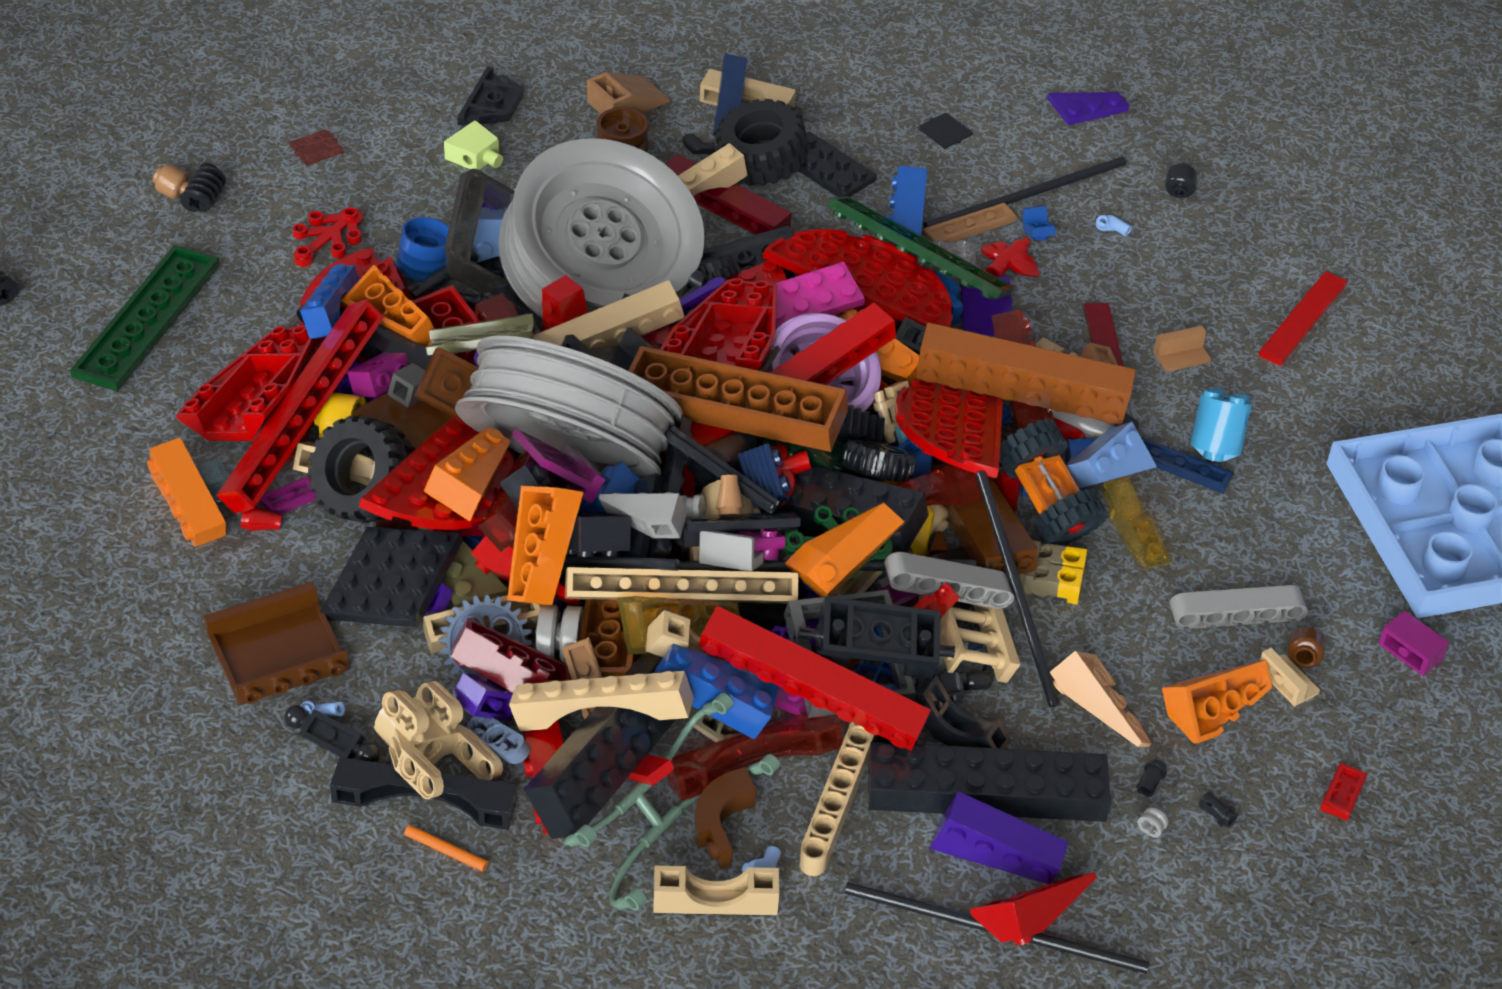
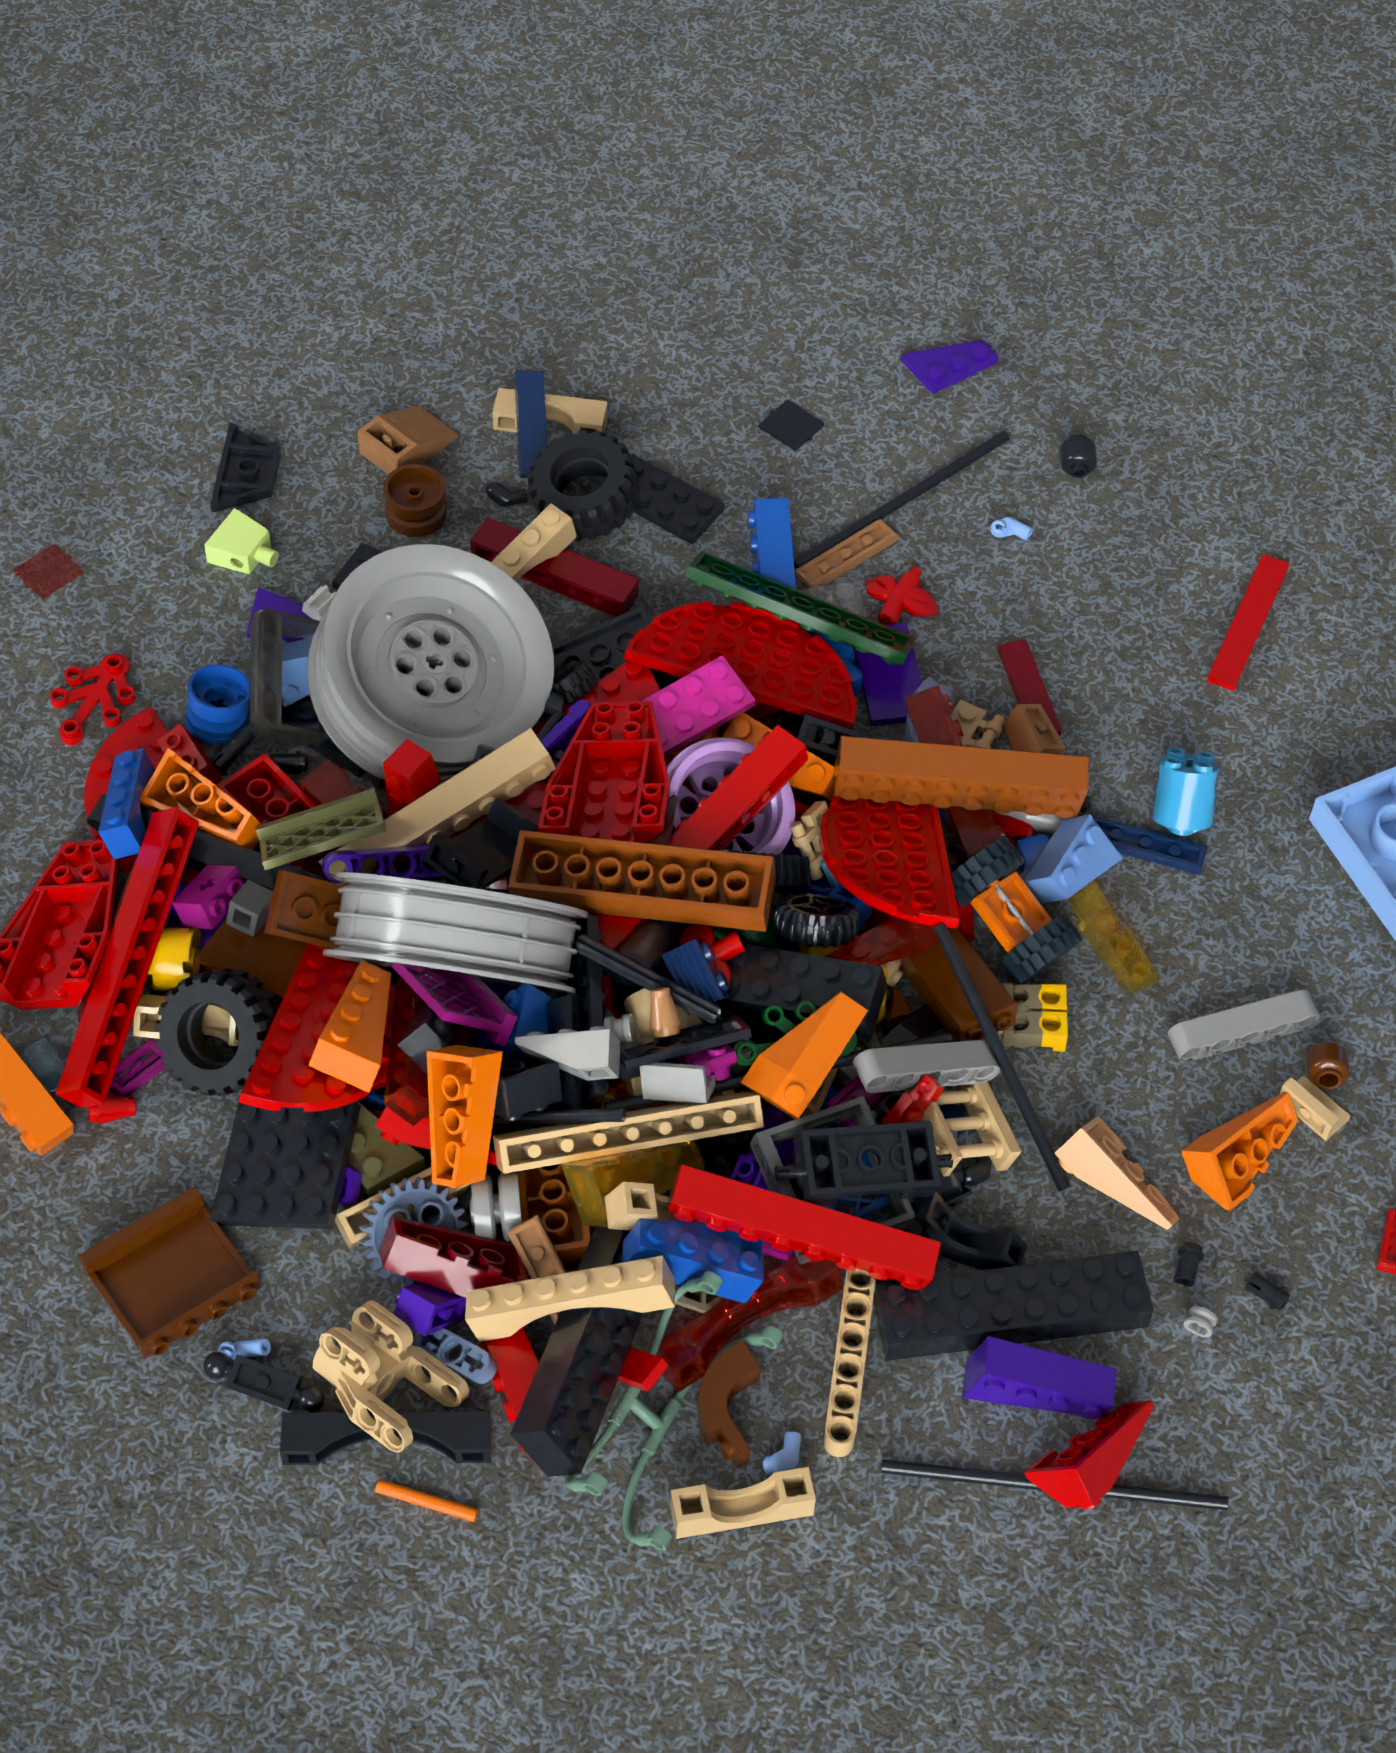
camera: 10 degrees left, 10 degrees up
(1036, 223) = (923, 543): blue bracket -> none
(1181, 349) = (1120, 690): medium nougat panel -> none

